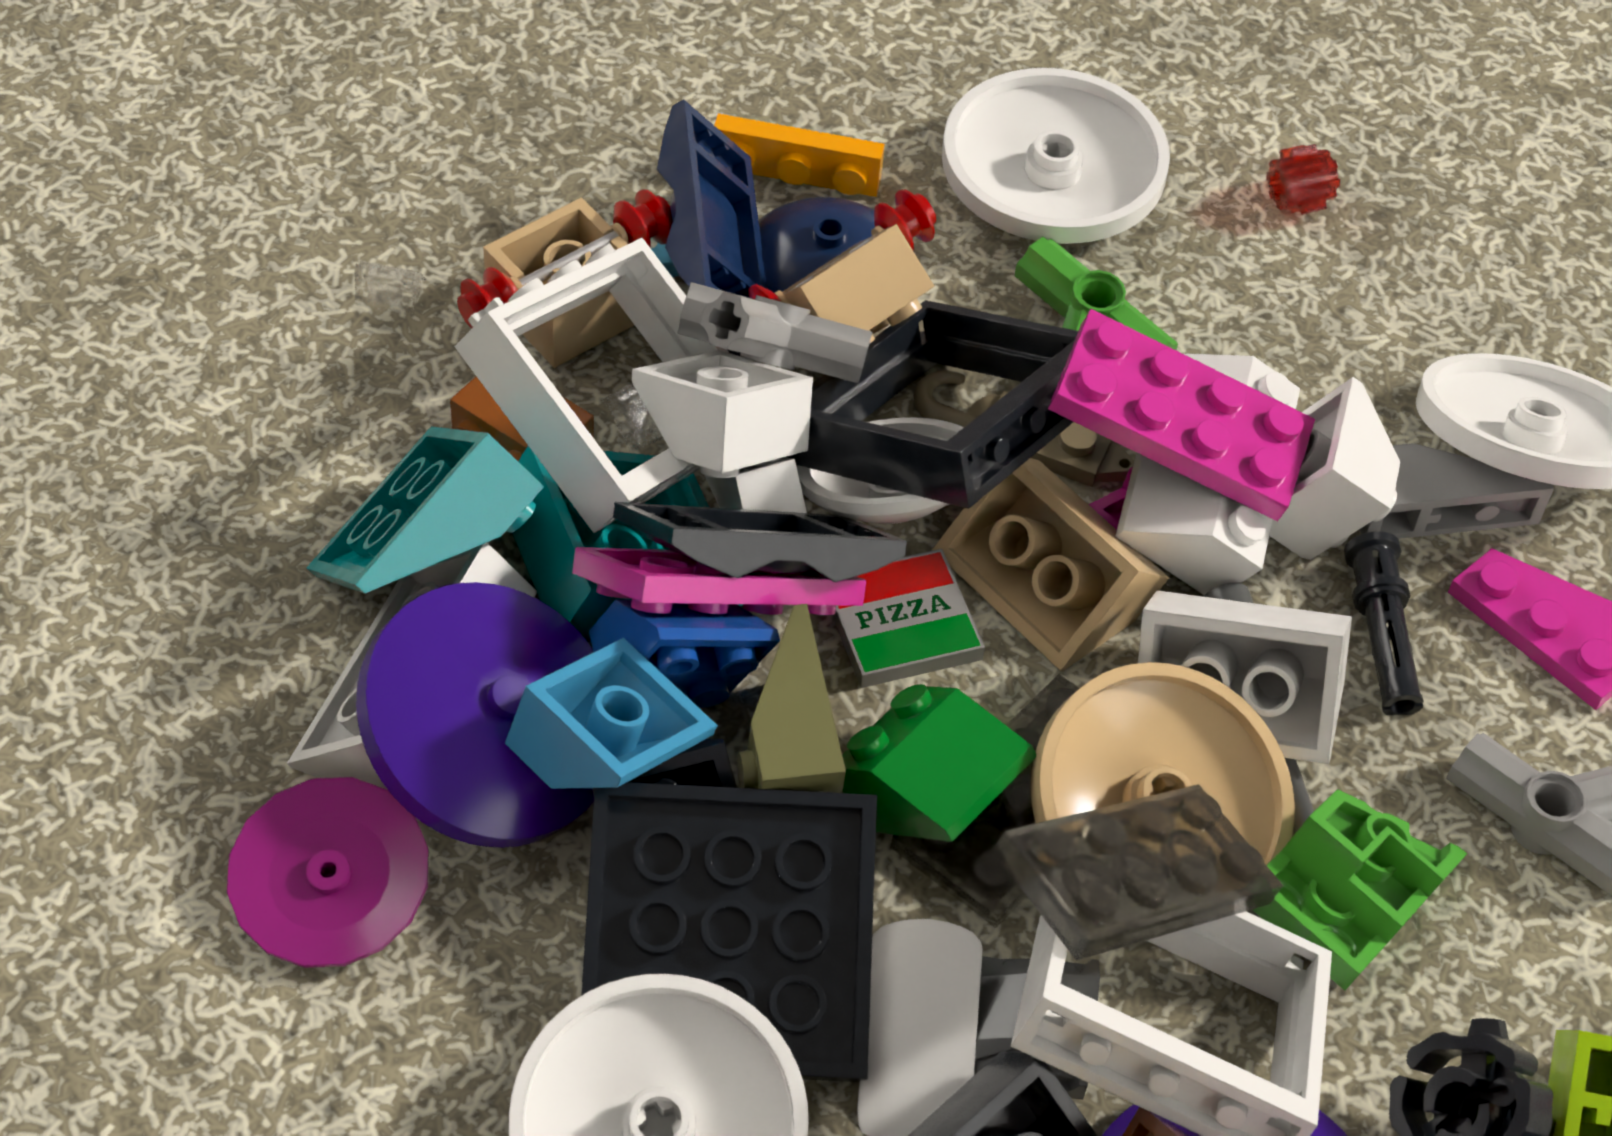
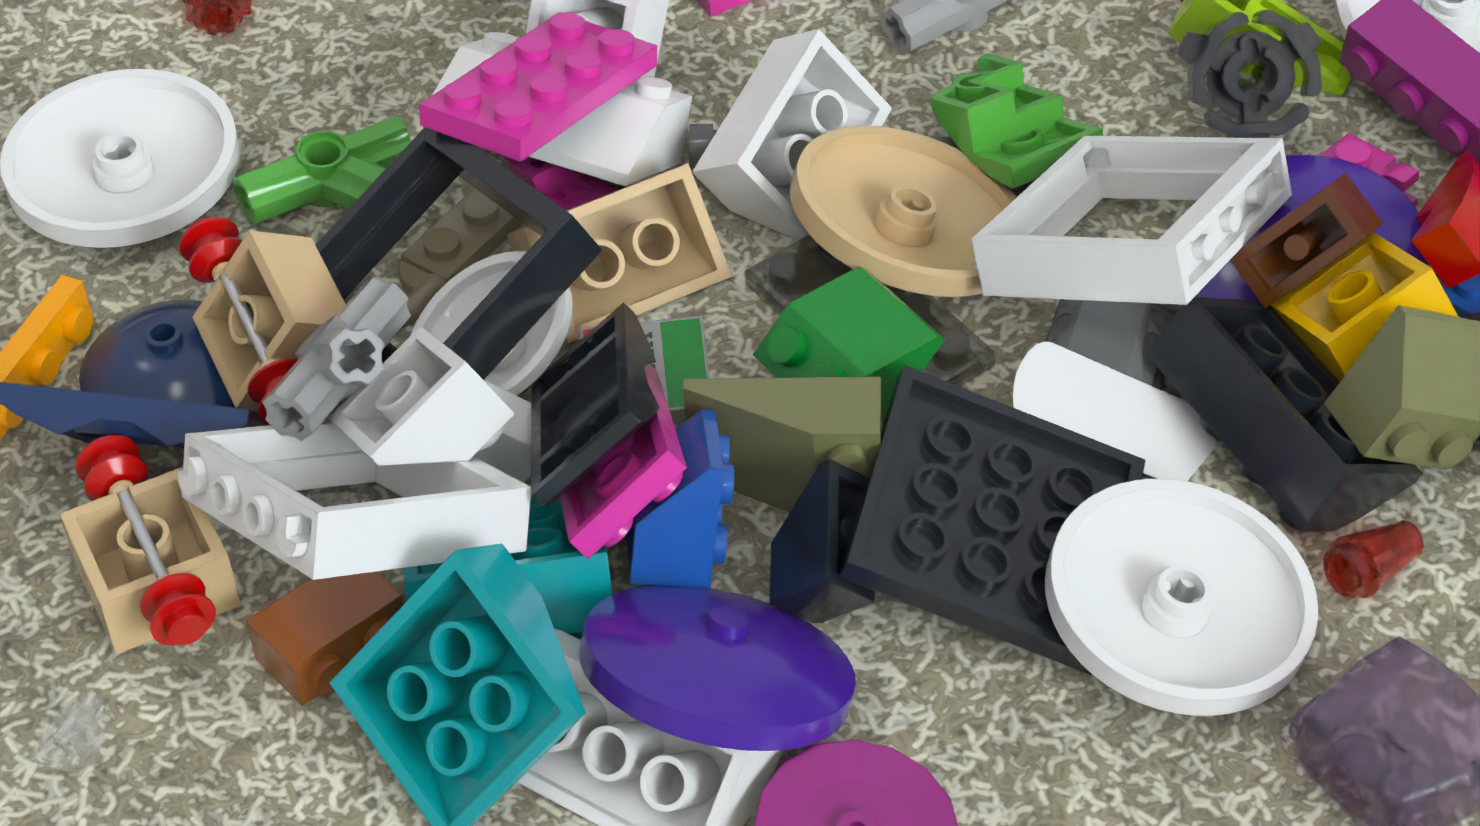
camera: 70 degrees left, 5 degrees down
(604, 721) = (790, 544): dark azure slope -> none
(1136, 870) = (1022, 202): clear smoke plate -> none
(1381, 576) = (710, 48): black pin -> none

